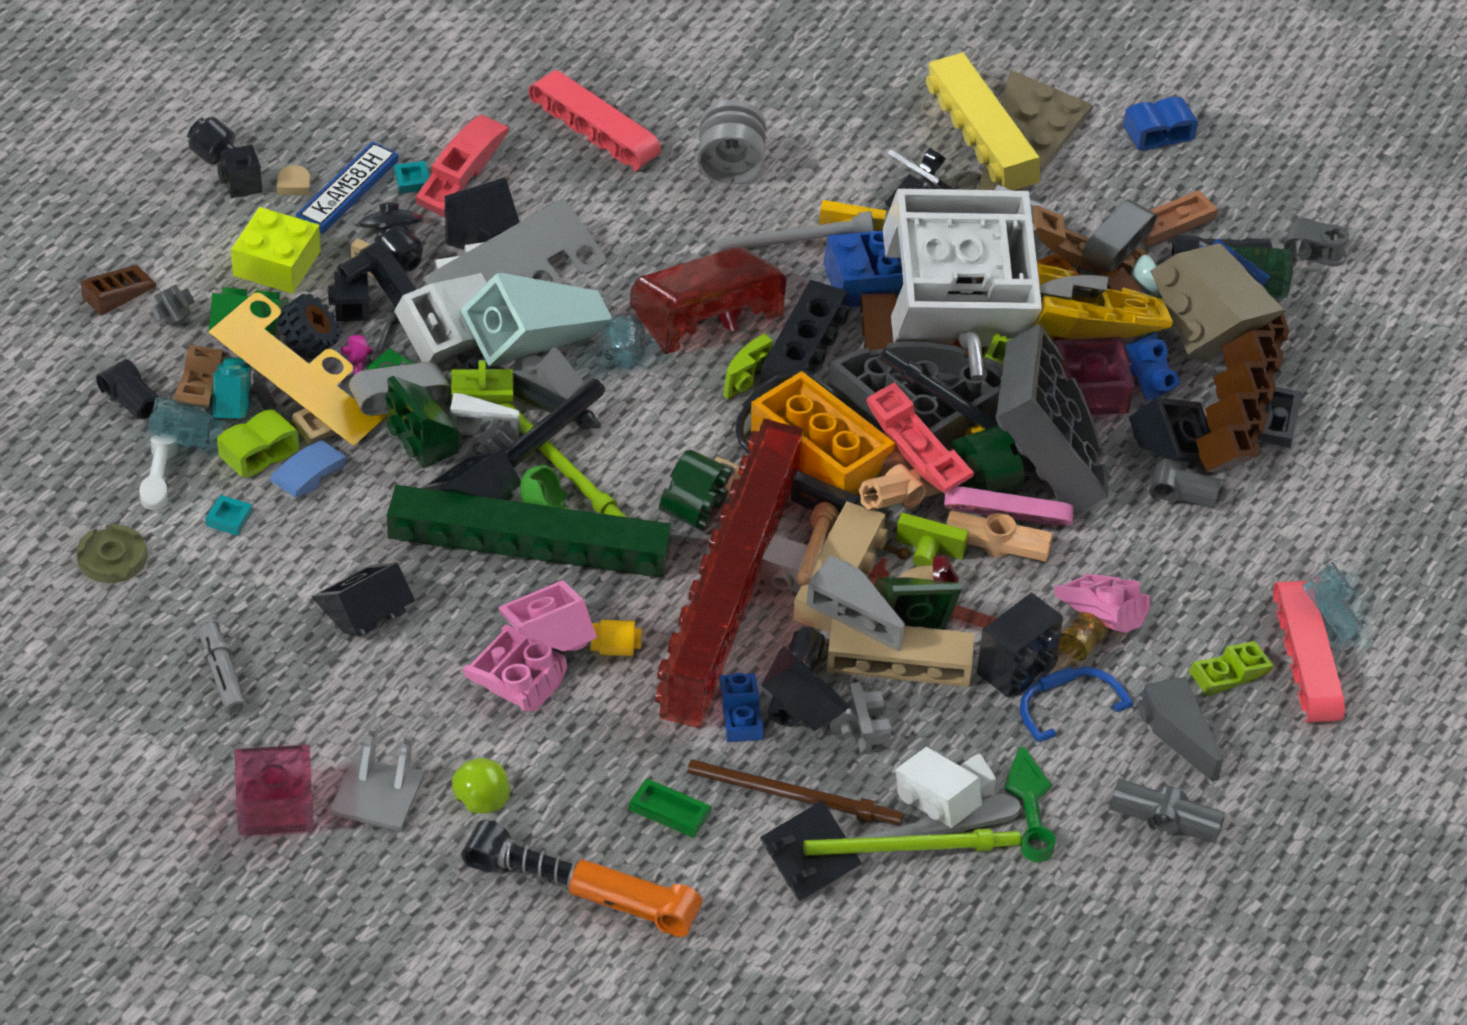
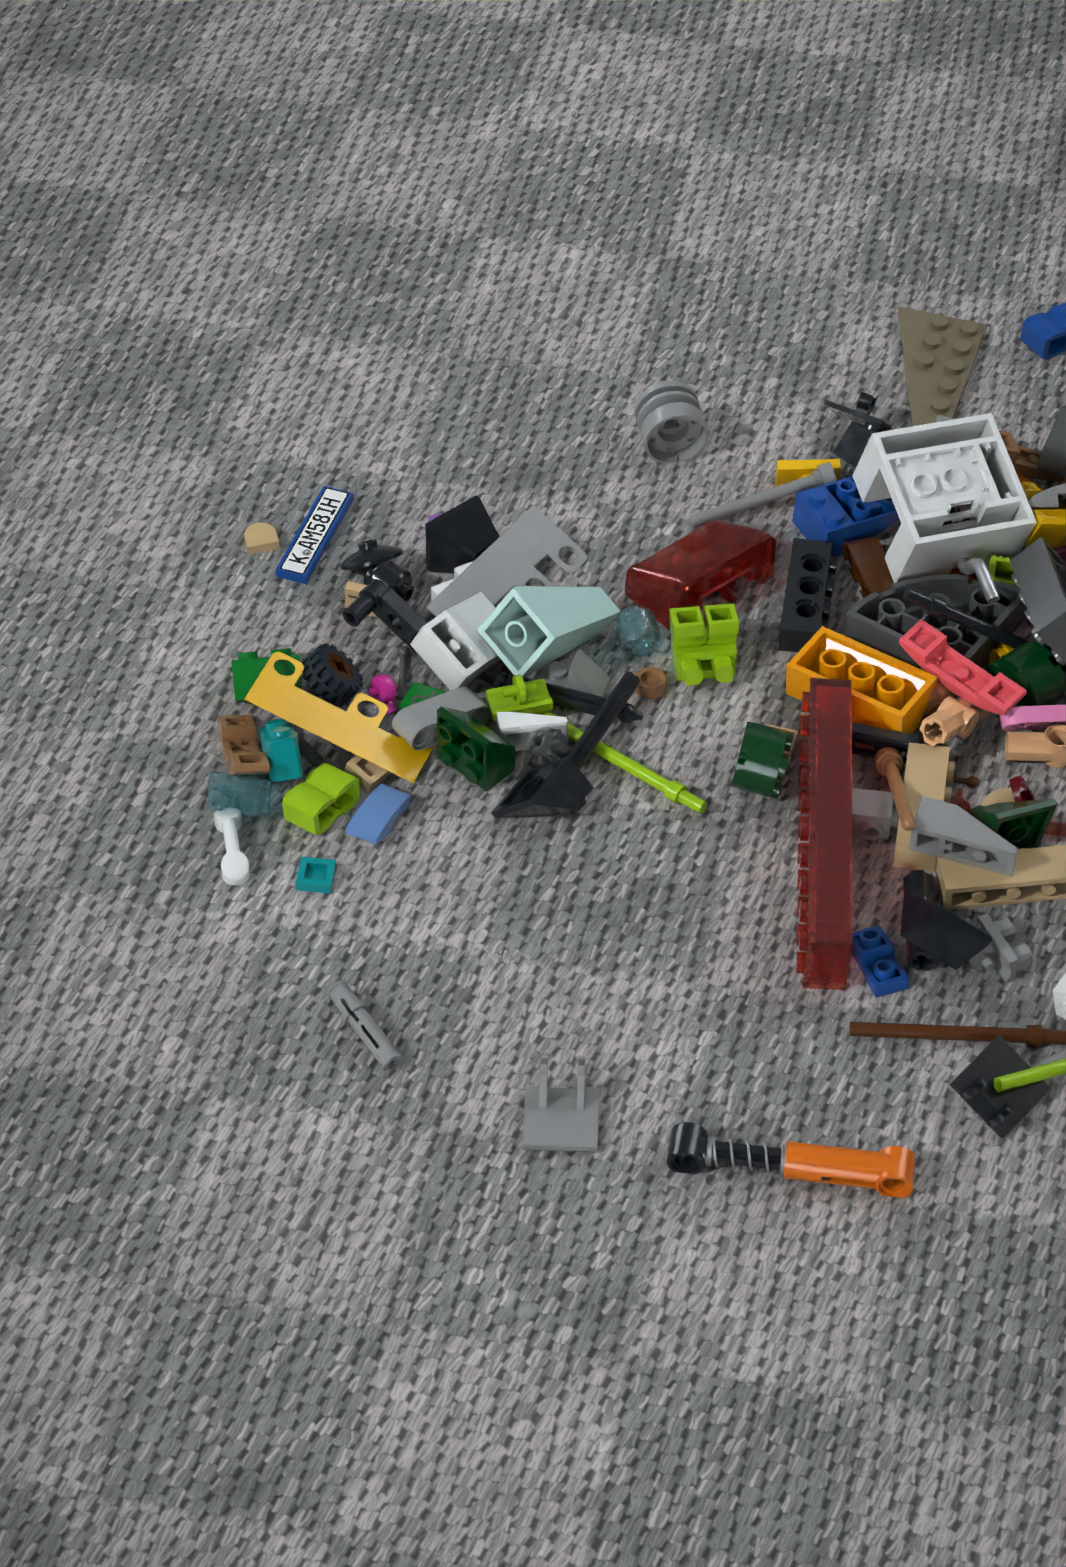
camera: 10 degrees left, 0 degrees up
(103, 298) = (119, 690): reddish brown slope -> none
(112, 563) = (204, 937): olive tile -> none
(125, 384) = (169, 767): black piece -> none
(172, 304) = (189, 680): dark grey gear -> none
(209, 138) = (168, 513): black head -> none
(240, 171) = (209, 538): black brick -> none
(274, 790) = (464, 1136): clear pink brick -> none
(275, 250) = (270, 608): neon yellow brick -> none
(350, 299) = (359, 642): black brick -> none
(366, 598) = (481, 928): black slope -> none
(411, 176) = (373, 513): teal tile -> none
(460, 161) = (418, 492): coral slope -> none
(481, 785) = (659, 1089): lime hair -> none
(518, 669) = (654, 967): bright pink slope -> none
(529, 531) = (615, 831): dark green brick -> none
(542, 487) = (613, 791): bright green hair -> none
(552, 617) = (674, 909): bright pink slope -> none
(595, 119) = (530, 425): coral beam -> none
(616, 638) = (735, 918): yellow brick -> none
(621, 394) = (652, 683): none -> medium nougat tile
(669, 808) = (846, 1073): green tile -> none
(682, 369) = (704, 647): none -> lime hips
(743, 366) = (761, 631): lime slope -> none
(764, 387) = (780, 667): black piece -> none
(931, 538) = (996, 762): lime tile -> none
(983, 122) = (897, 359): light yellow brick -> none

